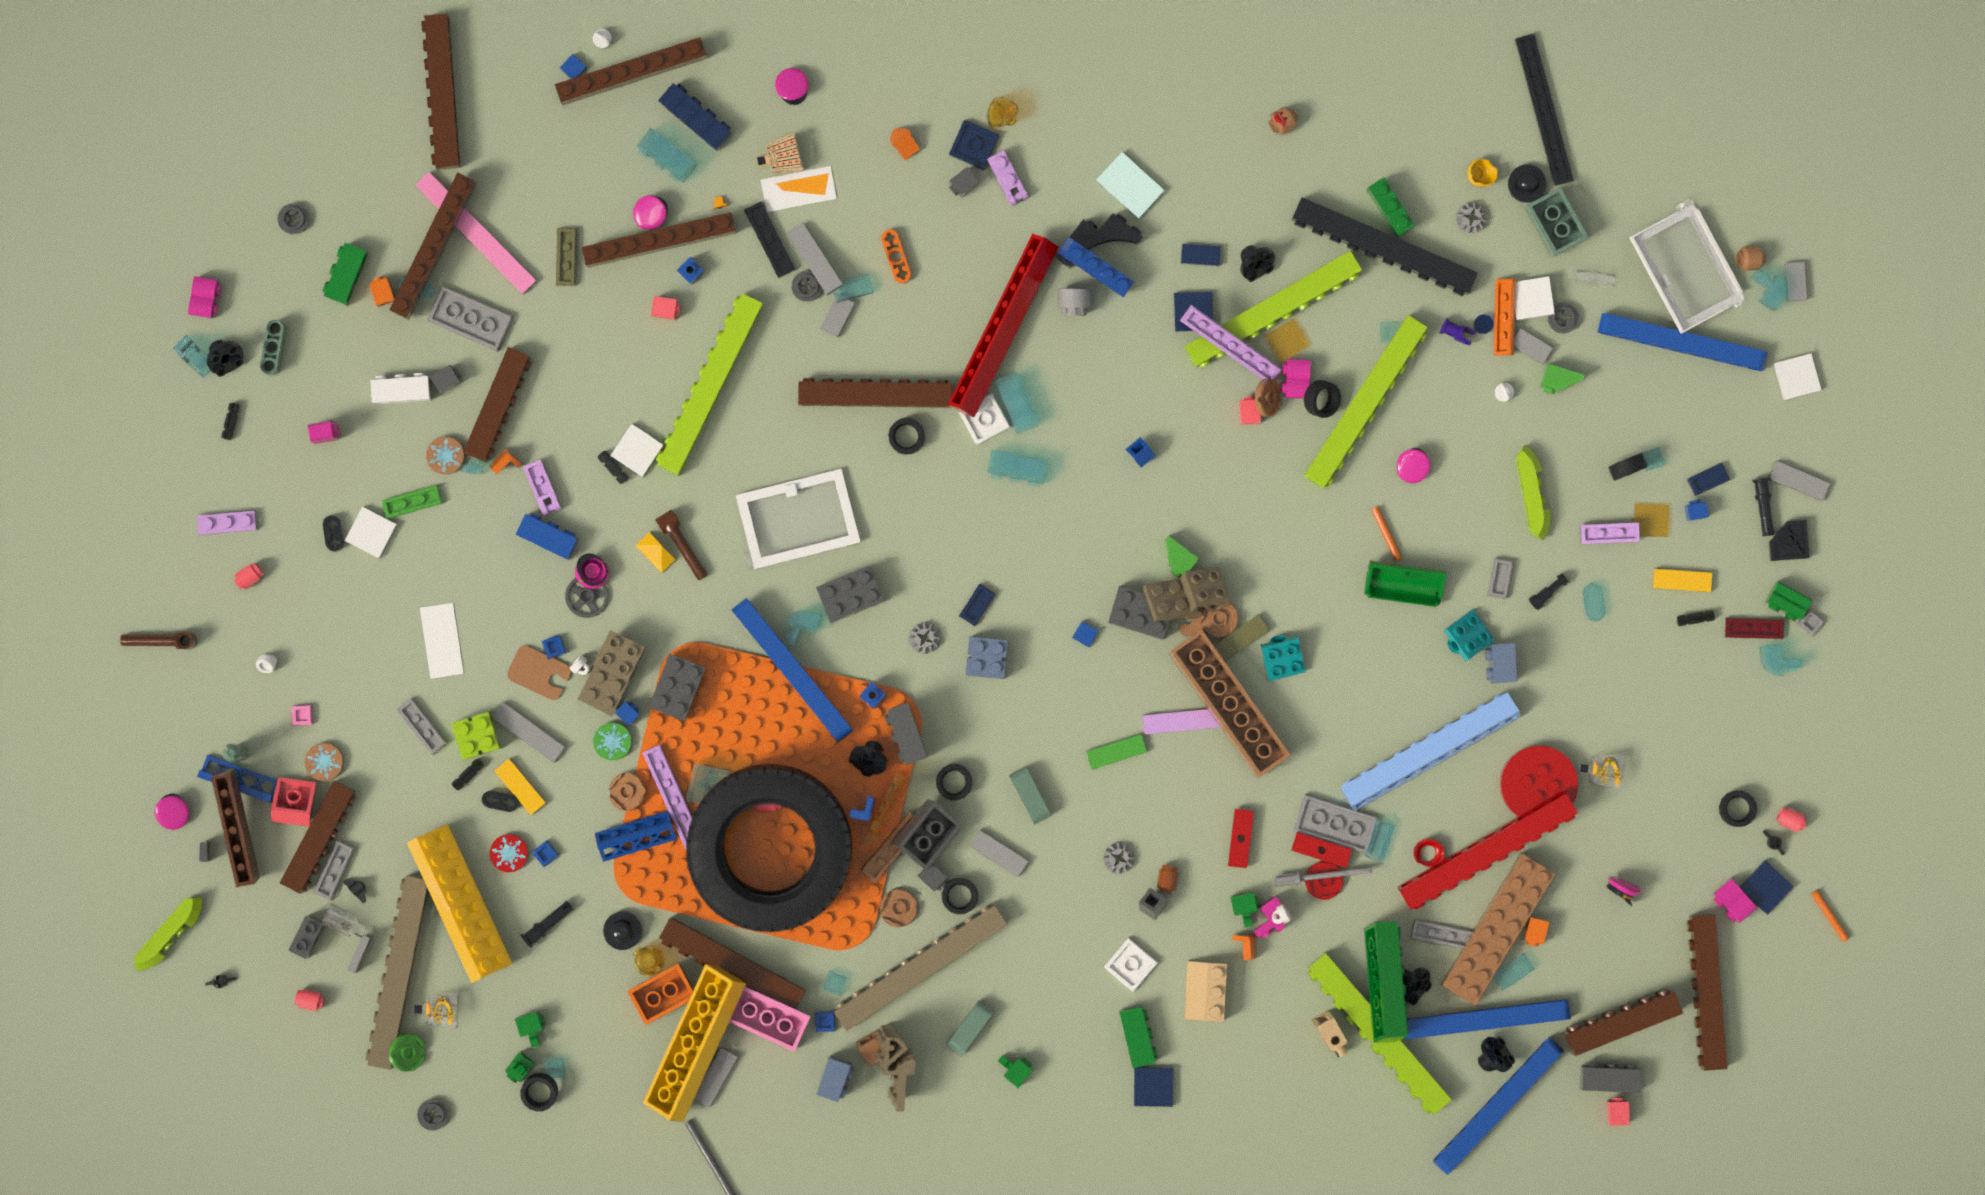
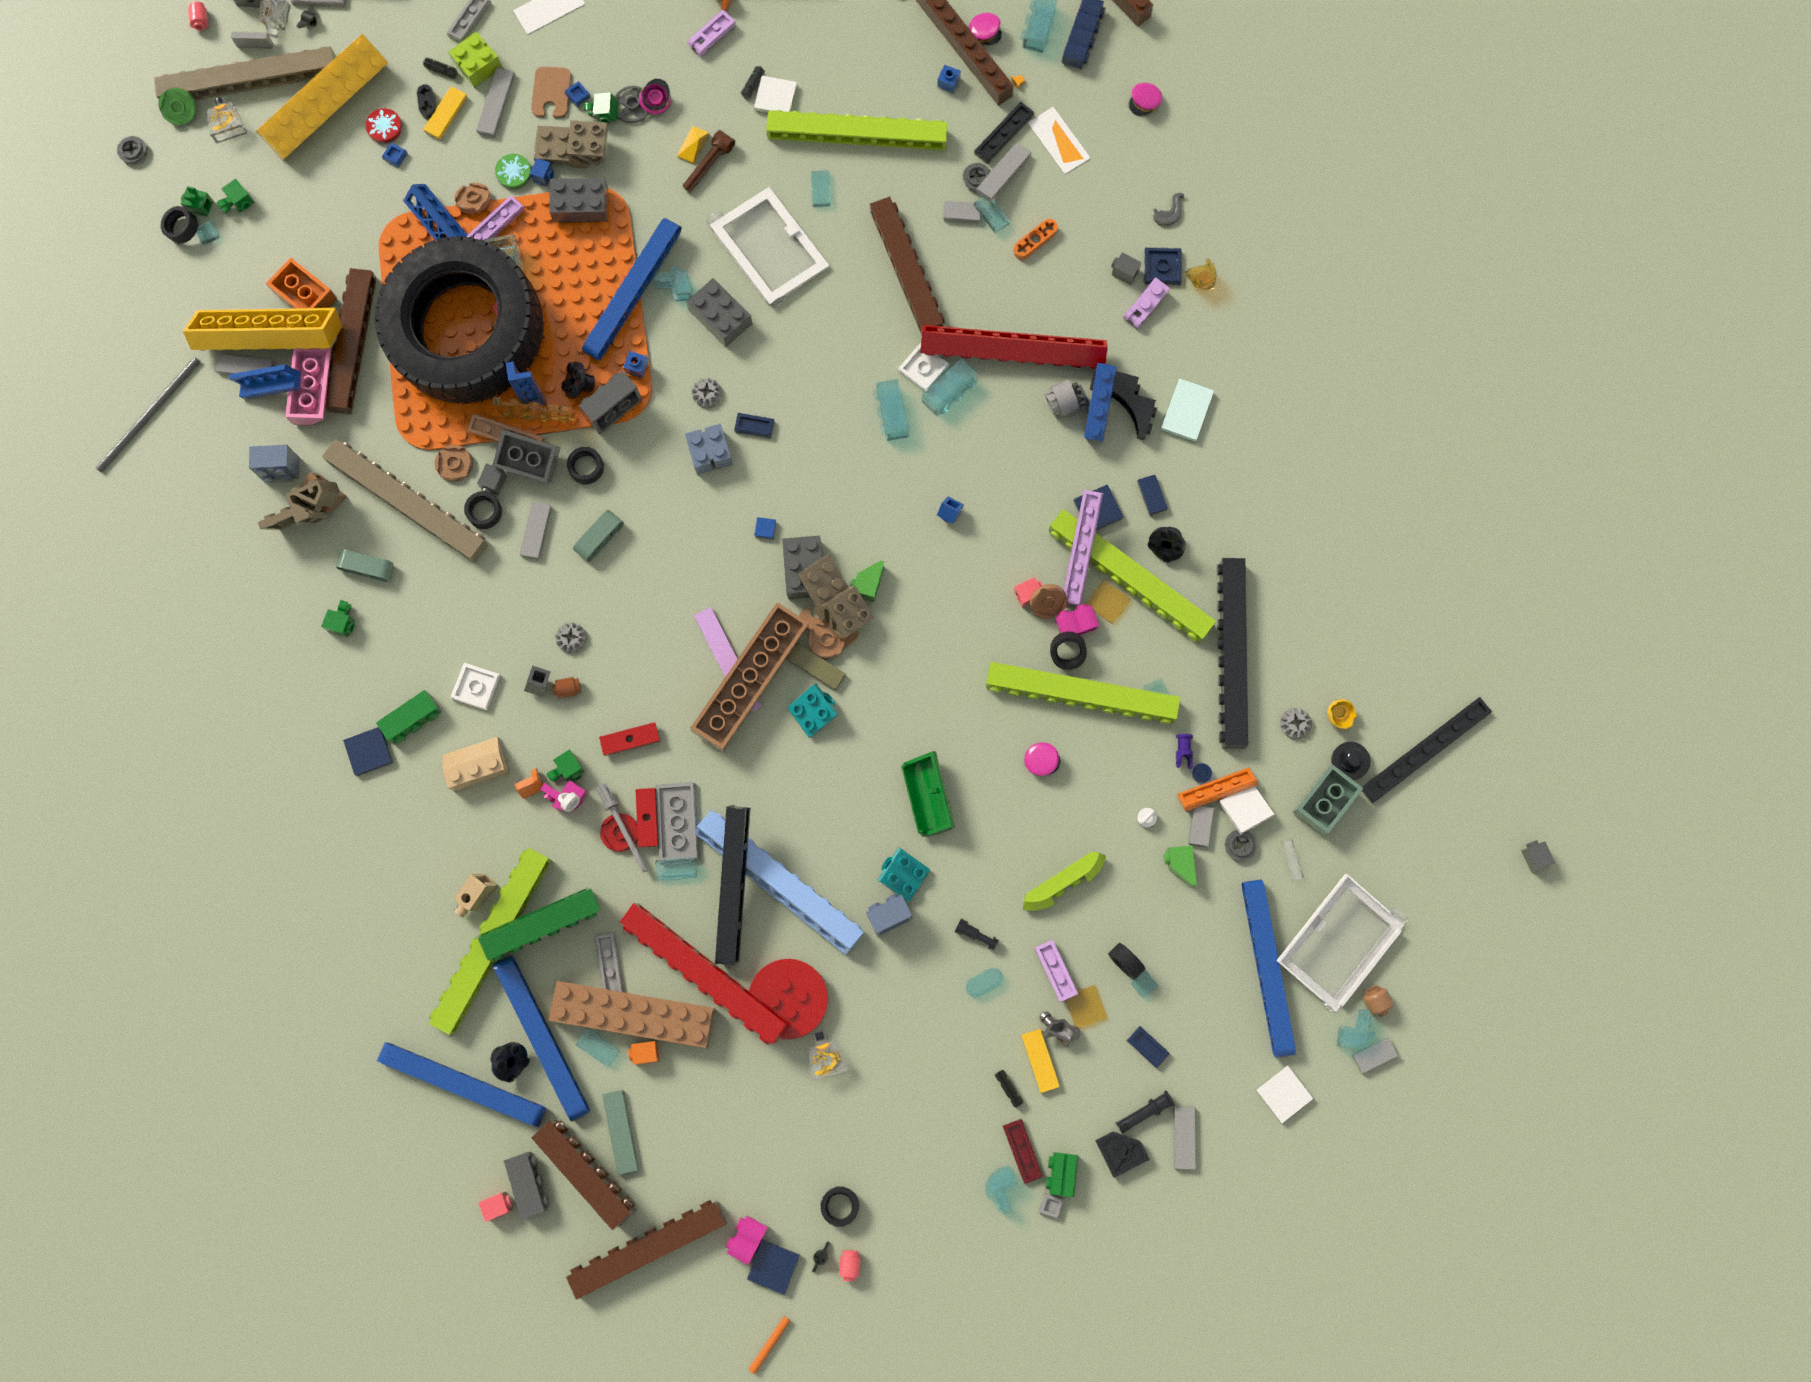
camera: 70 degrees right, 10 degrees down
(539, 930) = (325, 174): black pin -> none
(547, 535) = (671, 51): blue brick -> none
(578, 663) = (567, 116): white tile -> none
(583, 626) = (604, 107): none -> green brick
(622, 930) = (348, 241): black plate -> none
(649, 960) = (329, 270): clear yellow helmet -> none
(665, 308) = (907, 69): coral brick -> none
(750, 1057) = (267, 381): none -> blue fence
(755, 444) = (820, 188): none -> clear light blue tile
(782, 156) = (1082, 113): tan torso -> none
(825, 1021) = (326, 438): blue tile -> none
(834, 983) = (365, 434): clear light blue tile -> none
(904, 142) = (1137, 207): orange tile -> none
(909, 450) = (878, 294): black tyre -> none
(925, 117) = (1169, 217): none -> dark grey piece
(1078, 282) = (1081, 396): none -> dark grey gear
(1116, 751) = (668, 597): bright green tile -> none
(1283, 121) = (1306, 517): medium nougat head -> none
(1386, 533) = (968, 761): orange bar -> none
(1390, 207) = (1271, 643): green brick -> none
(1416, 984) = (549, 954): black plate -> none
(1420, 793) = (732, 885): none -> black tile
(1439, 849) = (674, 911): red piece -> none
(1500, 578) = (970, 884): light grey tile -> none
(1596, 979) = (620, 1132): none -> sand green tile
(1623, 888) = (716, 1122): dark pink piece -> none
(1662, 551) = (1060, 1029): none -> flat silver piece
(1680, 55) = (1537, 855): none -> dark grey brick
(1696, 510) = (1113, 1046): blue plate -> none

